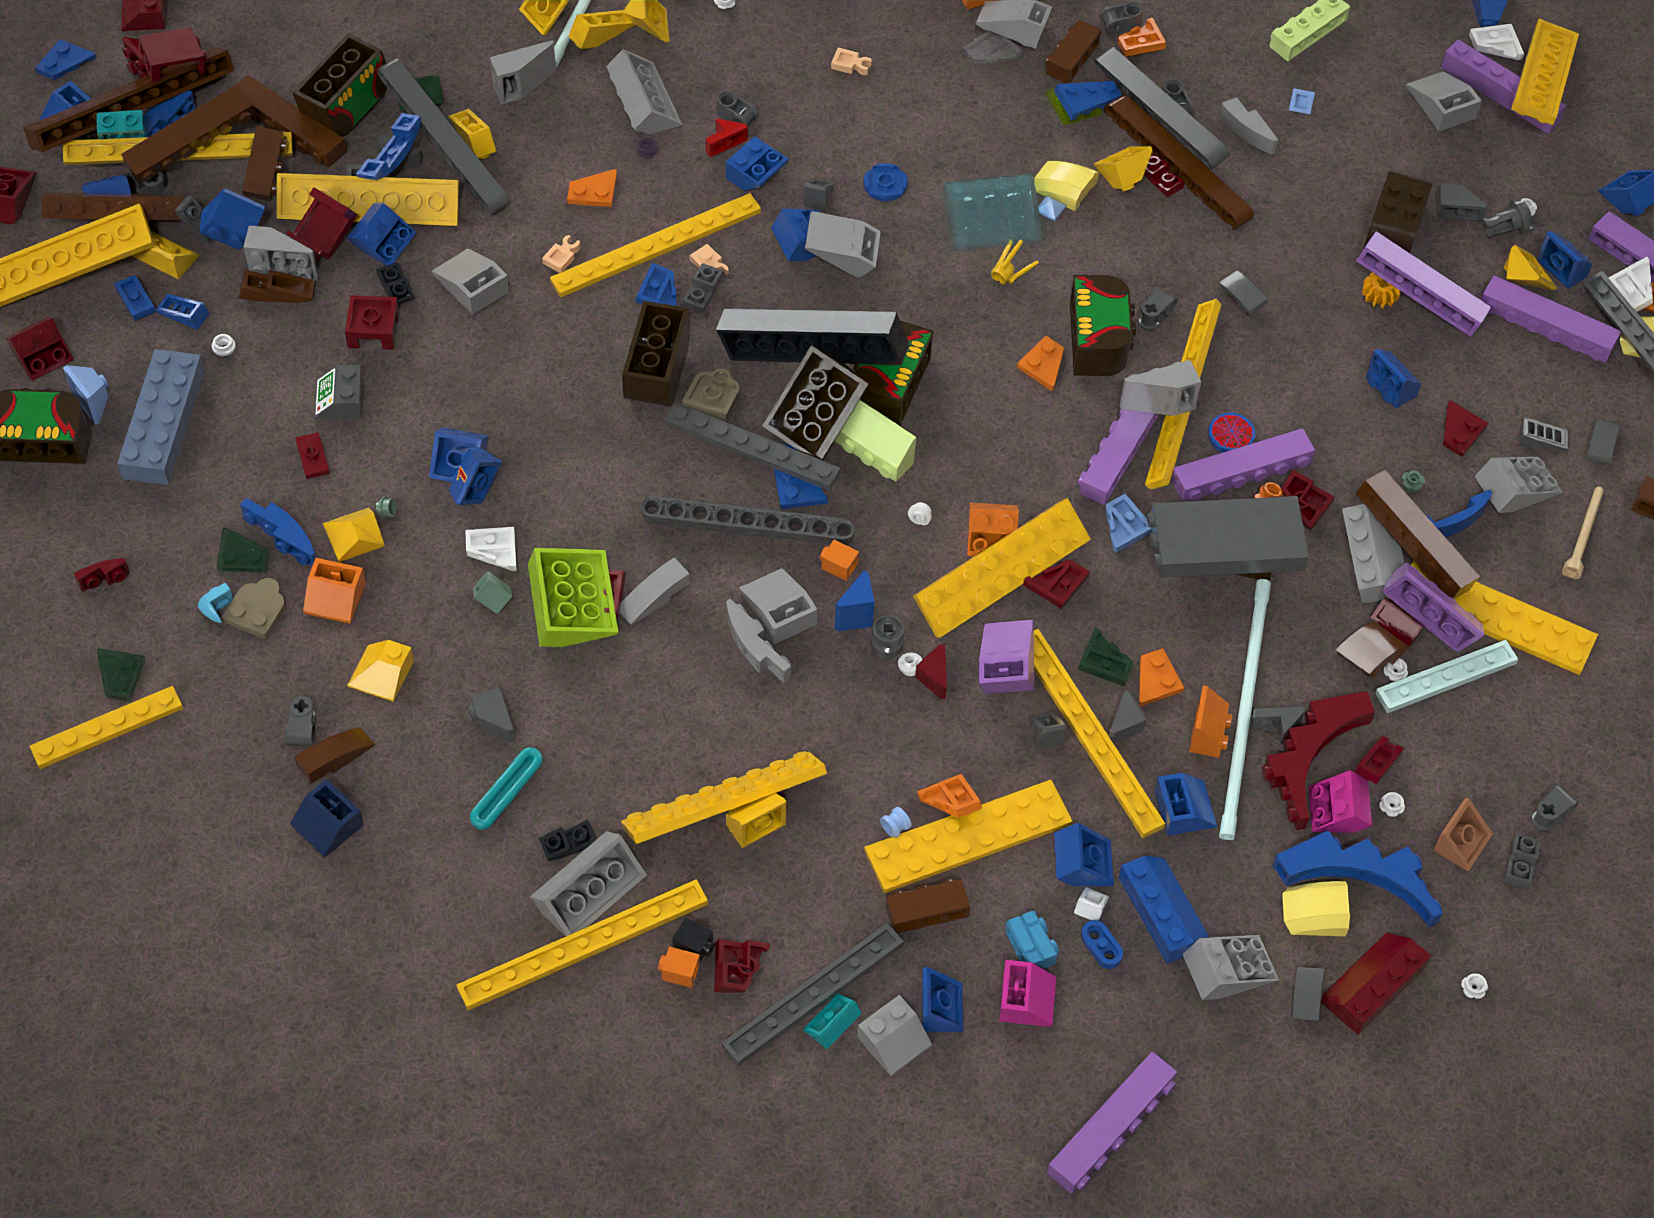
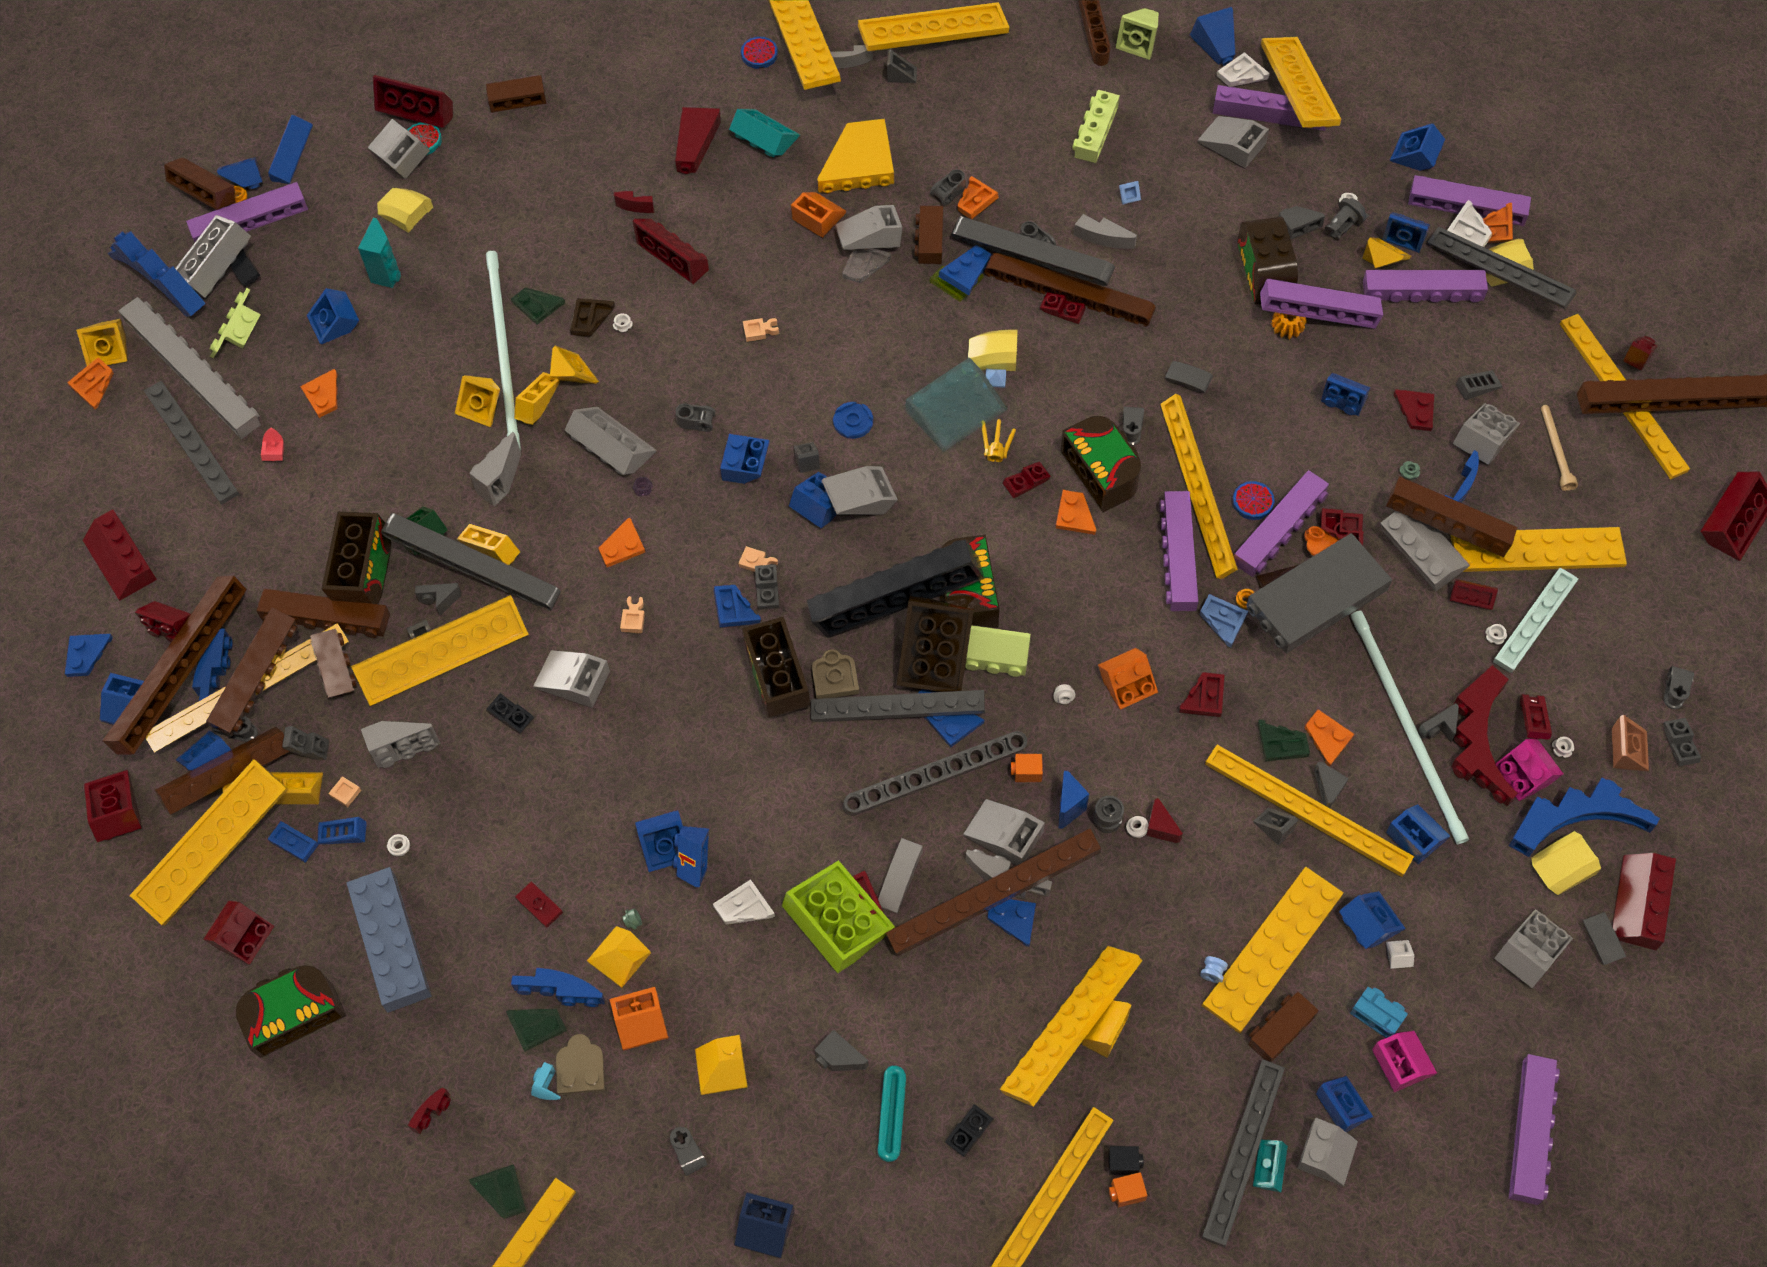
camera: 25 degrees left, 5 degrees up
(88, 389) = (309, 949): light blue slope -> none
(121, 125) = (186, 693): teal bracket -> none
(170, 49) = (190, 603): dark red panel -> none
(206, 278) = (345, 792): none -> light nougat plate
(229, 217) = (336, 729): blue slope -> none
(275, 287) = (410, 769): reddish brown slope -> none
(323, 225) = (417, 694): dark red panel -> none
(332, 753) = (731, 1163): reddish brown slope -> none
(339, 393) = (527, 837): dark grey slope -> none
(371, 319) = (514, 757): dark red panel -> none
(381, 234) = (472, 675): blue slope -> none
(405, 132) = (440, 596): blue slope -> none
(492, 592) = (769, 946): sand green panel -> none
(589, 884) = (1011, 1160): light grey slope -> none
(655, 245) = (702, 569): yellow plate -> none
(727, 136) = (702, 443): red slope -> none
(727, 644) = (994, 892): none -> reddish brown brick
(736, 974) = (1171, 1169): dark red slope -> none
(737, 682) = (1014, 918): none -> blue wing
(951, 796) = (1243, 924): orange wing -> none
(1001, 568) = (1157, 708): yellow plate -> none
(1007, 657) = (1211, 780): medium lavender slope -> none
(1021, 311) = (1029, 478): none -> dark red slope
(1103, 945) = (1430, 983): blue plate -> none
(1125, 166) = (1032, 313): yellow slope -> none
(1162, 390) = (1193, 494): light grey slope -> none
(1162, 906) = (1456, 928): blue slope -> none
(1210, 724) = (1395, 756): orange slope -> none
(1371, 649) = (1471, 627): slope -> none
(1433, 608) = (1499, 570): medium lavender slope -> none
(1477, 980) = (1715, 858): white plate -> none
(1603, 441) = (1525, 366): dark grey slope -> none

